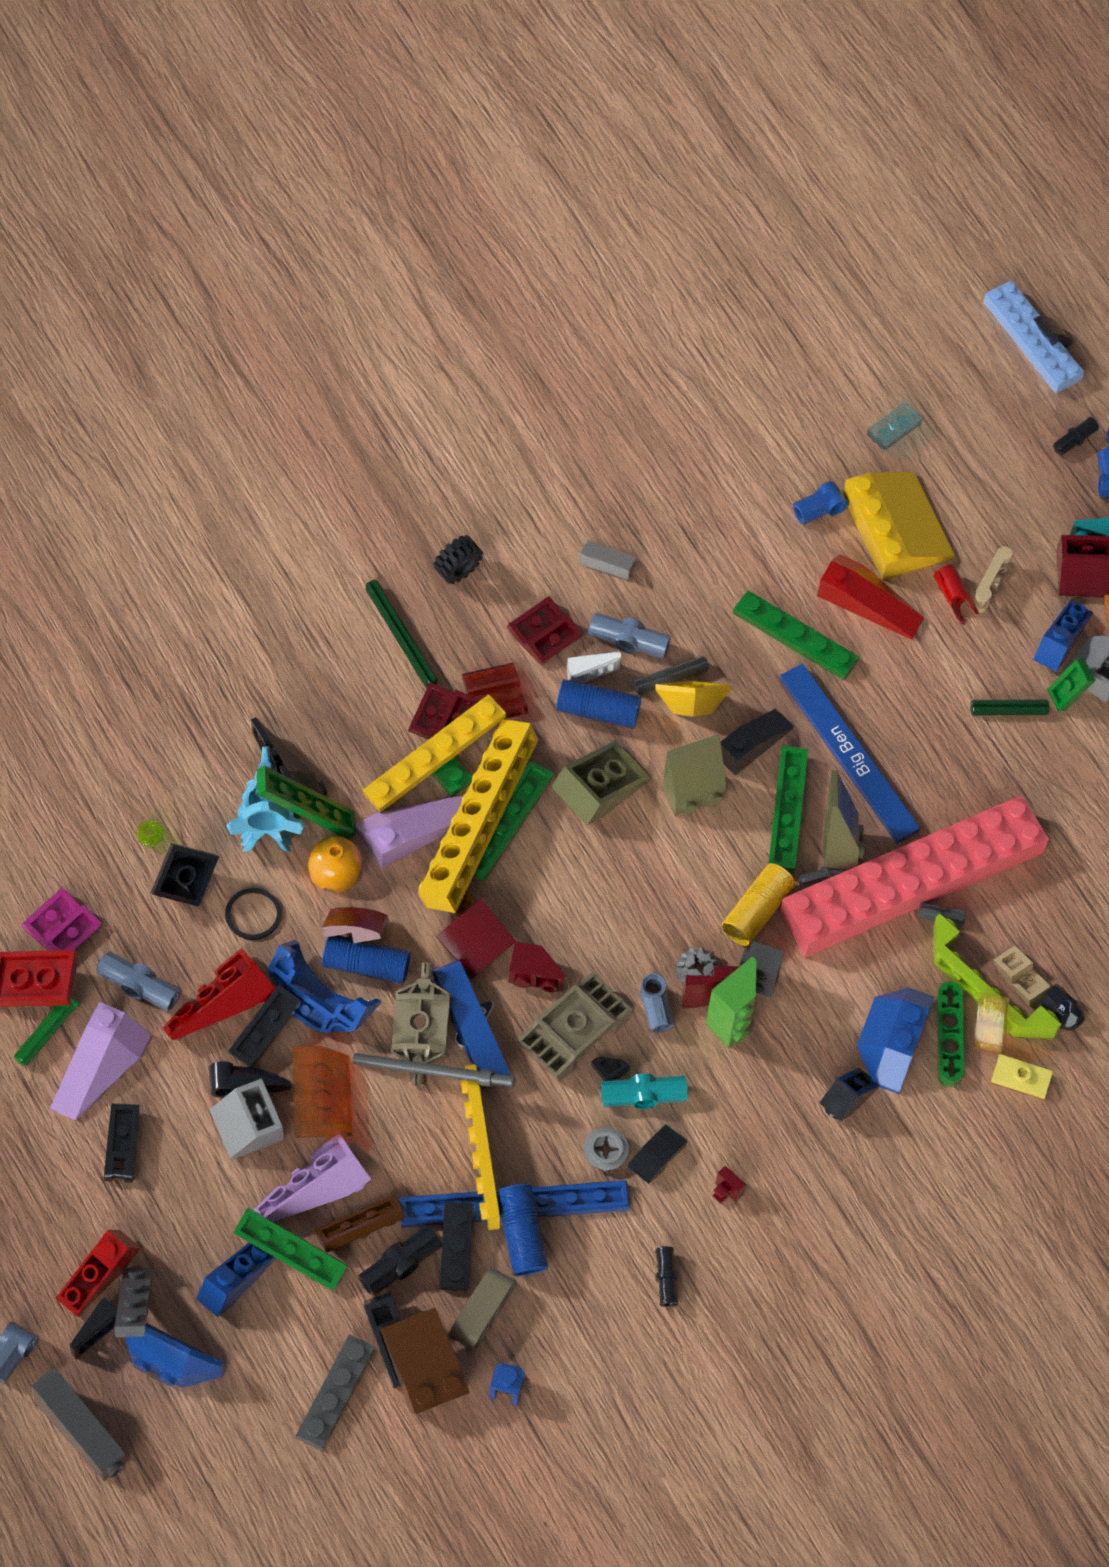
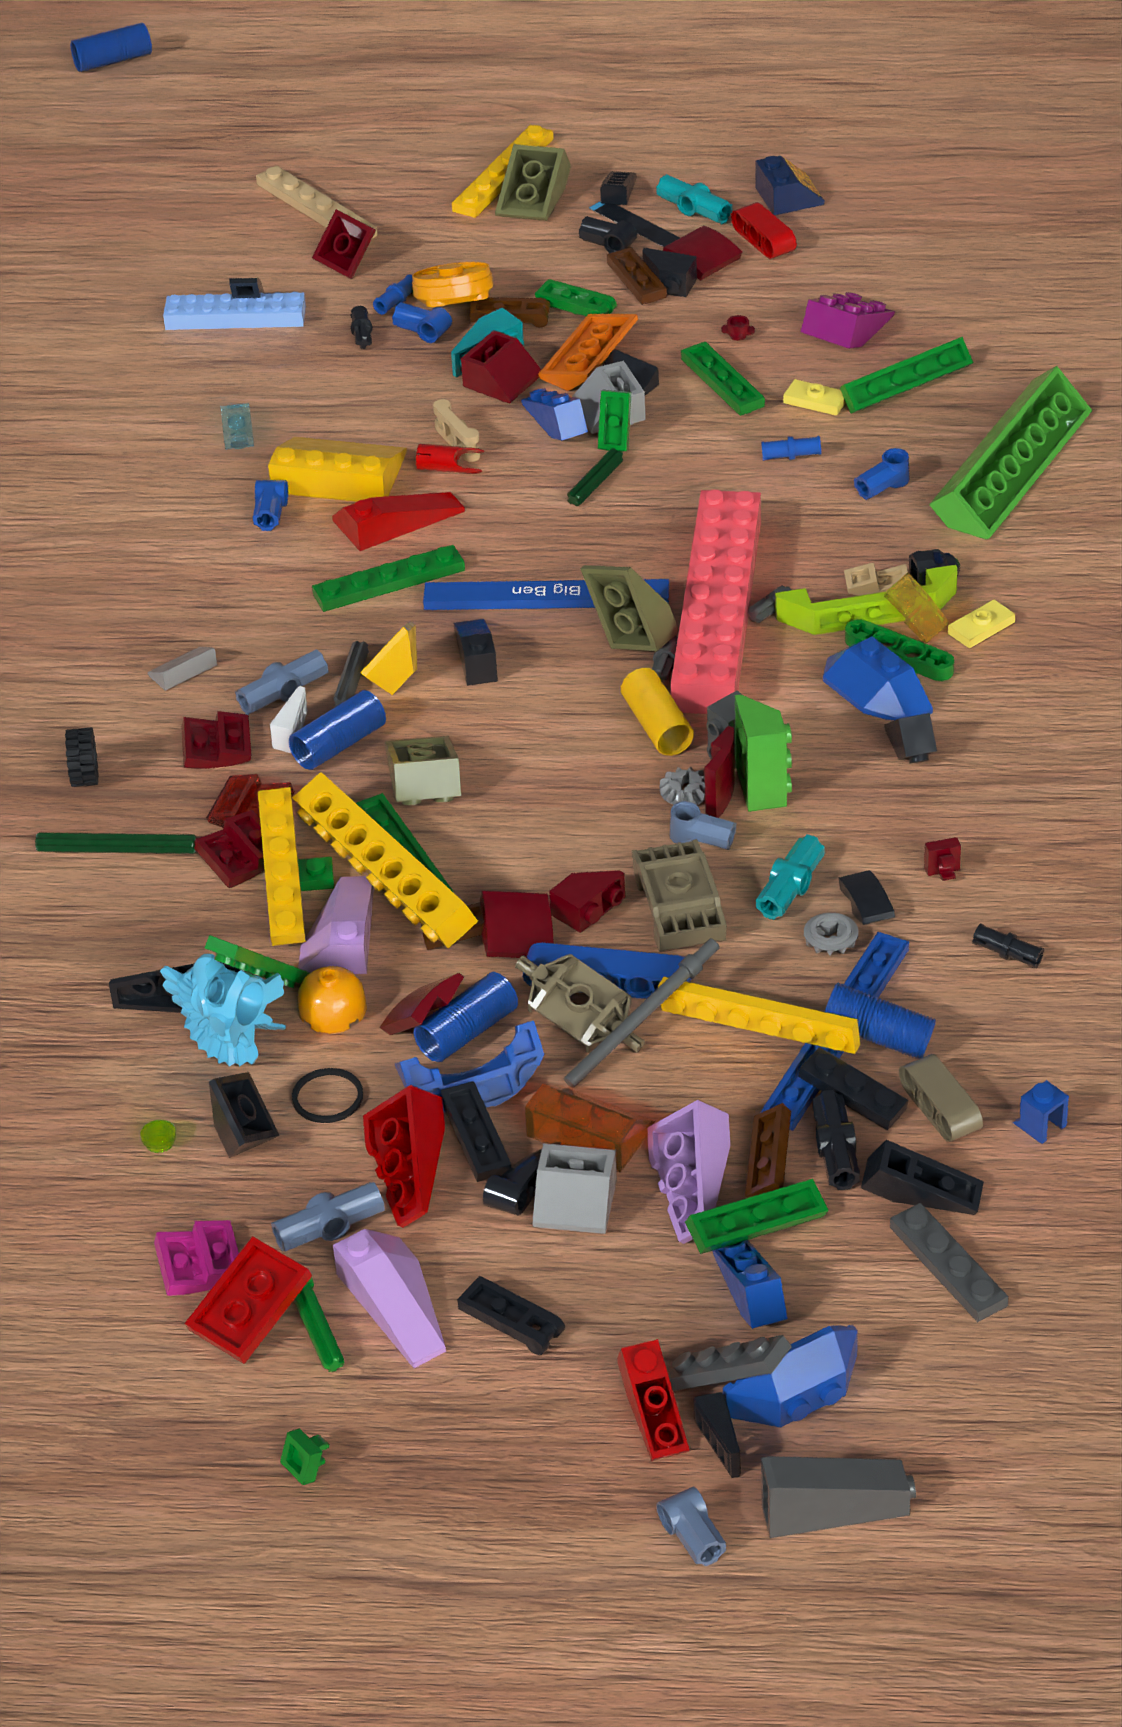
camera: 50 degrees left, 20 degrees down
(424, 1361) = (977, 1158): reddish brown slope -> none
(609, 1068) = (741, 896): black tile -> none
(694, 776) = (486, 687): olive slope -> none
(788, 807) = (566, 653): green plate -> none

